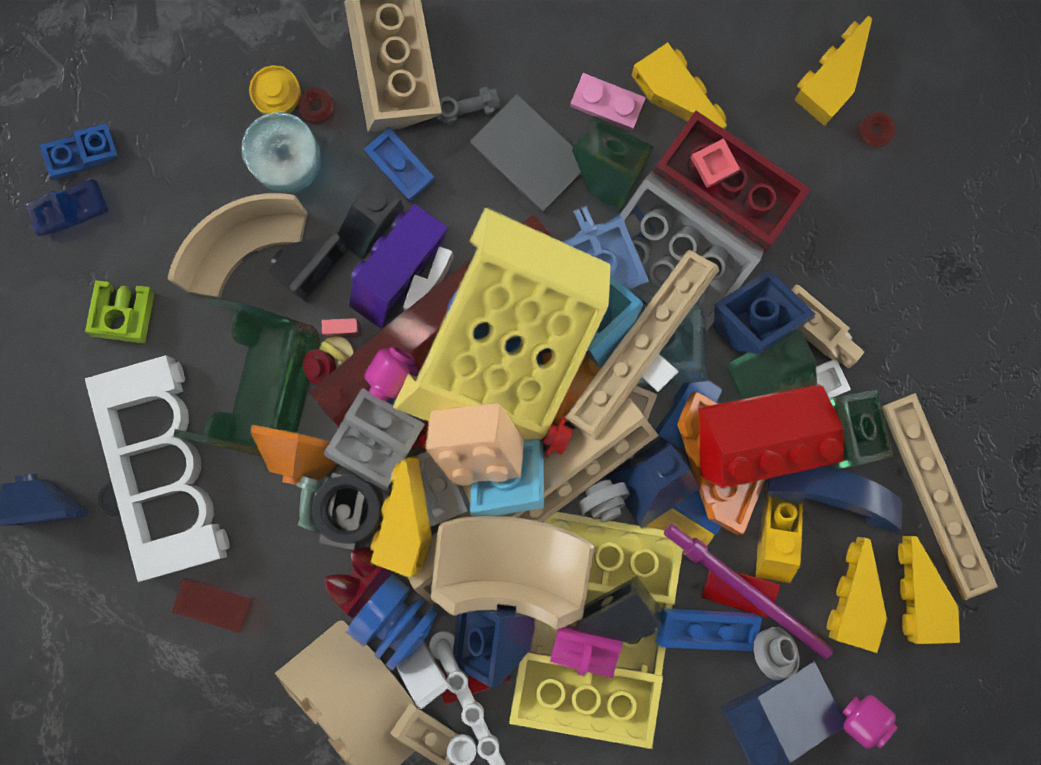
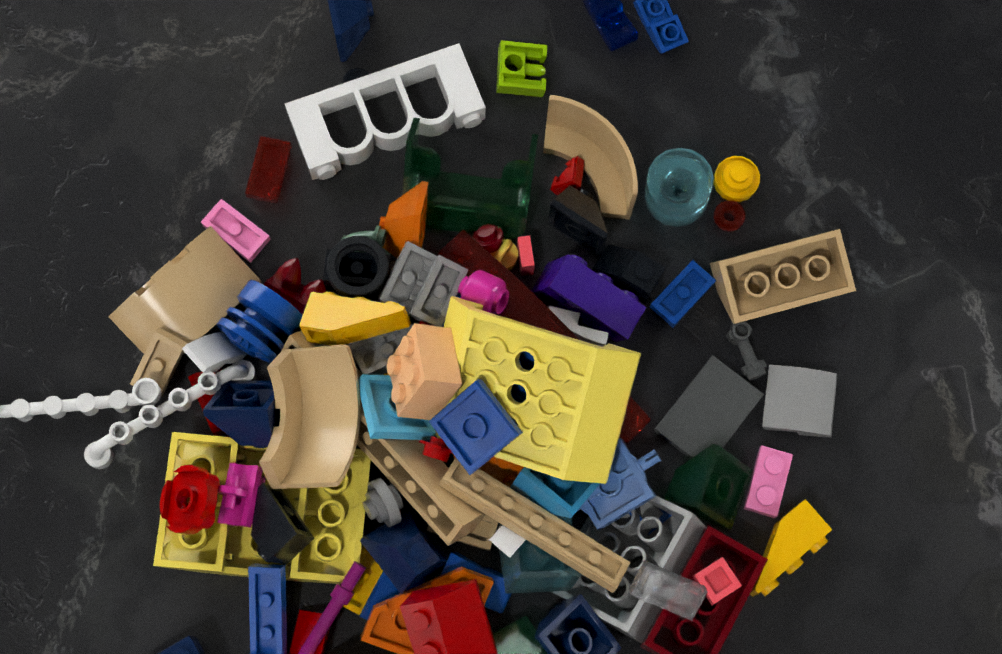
camera: 80 degrees right, 10 degrees down
(255, 271) = (570, 176): none -> red tile
(280, 645) = (236, 230): none -> bright pink plate
(526, 57) = (800, 400): none -> light grey slope
(542, 393) = (475, 426): none -> blue tile
(584, 690) = (203, 493): none -> red plate
(724, 213) = (668, 590): none -> clear plate

